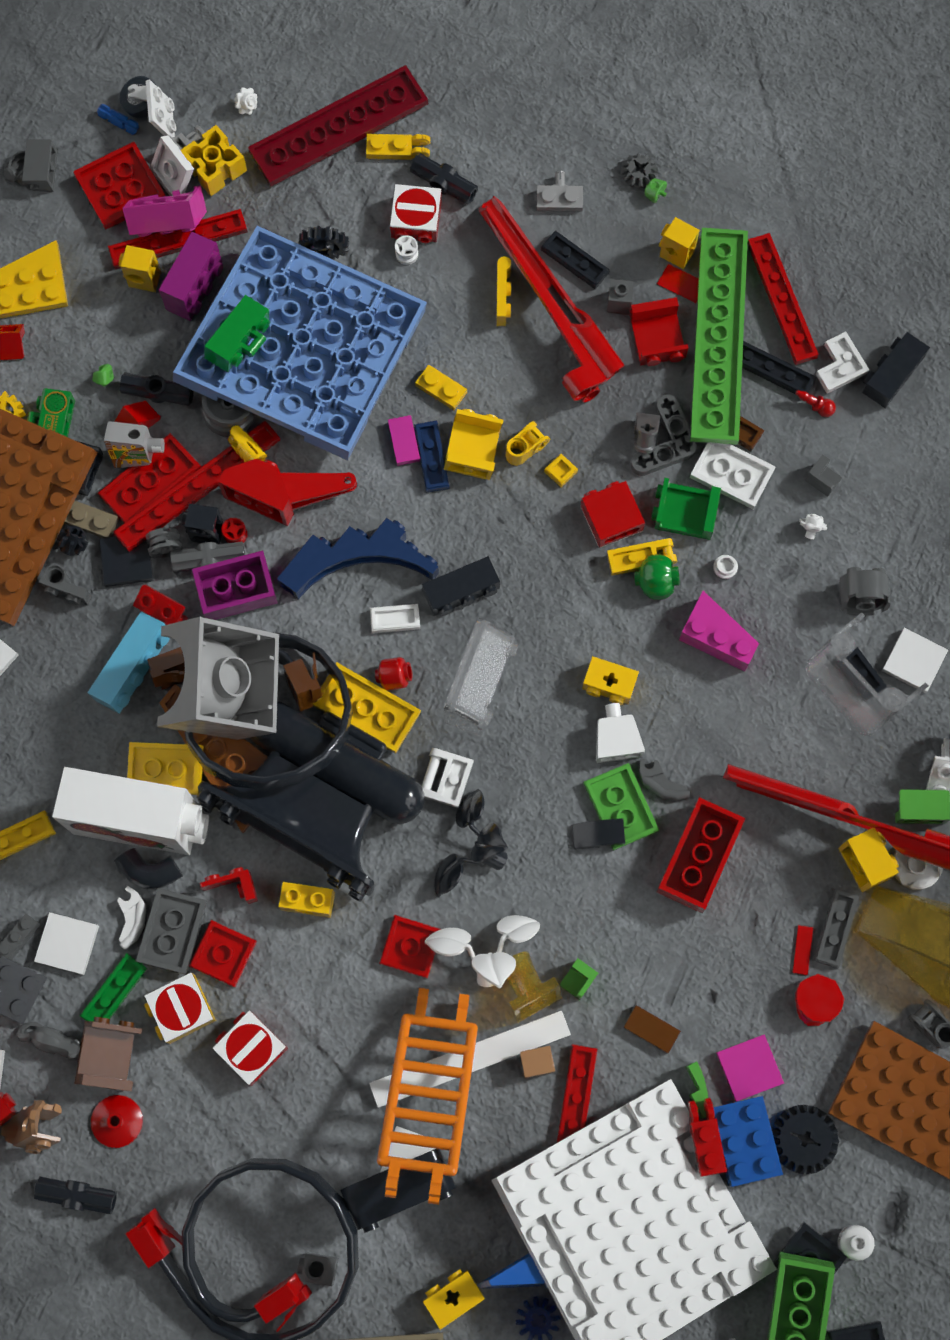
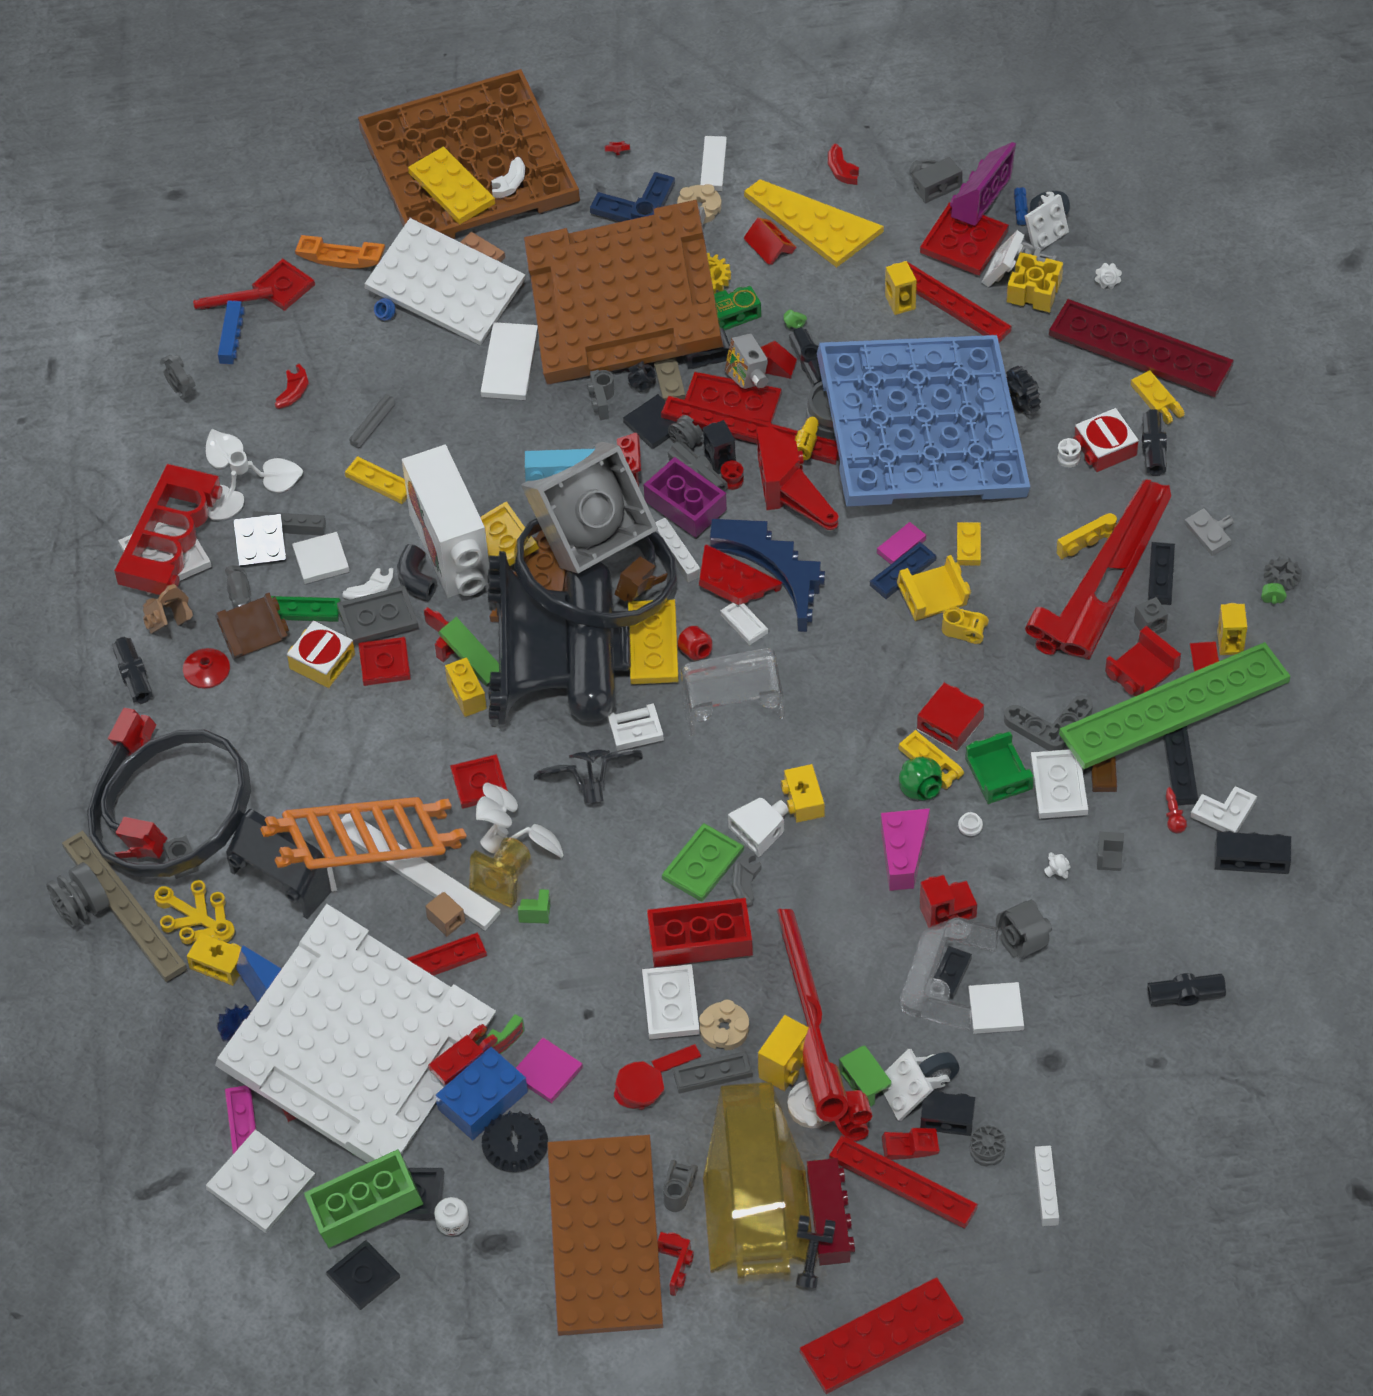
camera: 60 degrees right, 20 degrees down
(80, 131) = (983, 185): none -> magenta slope
(165, 213) = (962, 277): dark pink wedge -> none
(191, 276) = (921, 318): magenta brick -> none
(234, 334) = (885, 365): green piece -> none
(249, 1047) = (321, 716): piece -> none
(272, 872) = (468, 646): none -> bright green tile
(302, 628) = (684, 560): none -> white piece
(344, 599) = (733, 578): none -> red wing
(392, 1289) = (195, 916): none -> yellow plant
(461, 587) = (804, 648): black brick -> none
(561, 470) = (963, 664): yellow tile -> none
(599, 833) = (667, 856): black slope -> none
(645, 432) = (1043, 700): flat silver piece -> none
(652, 1029) = (529, 983): reddish brown tile -> none
(748, 921) = (670, 1001): none -> white plate
(782, 299) = (1249, 736): red plate -> none
(798, 635) = (944, 902): none -> red brick
(807, 879) = (724, 1012): none -> tan plate

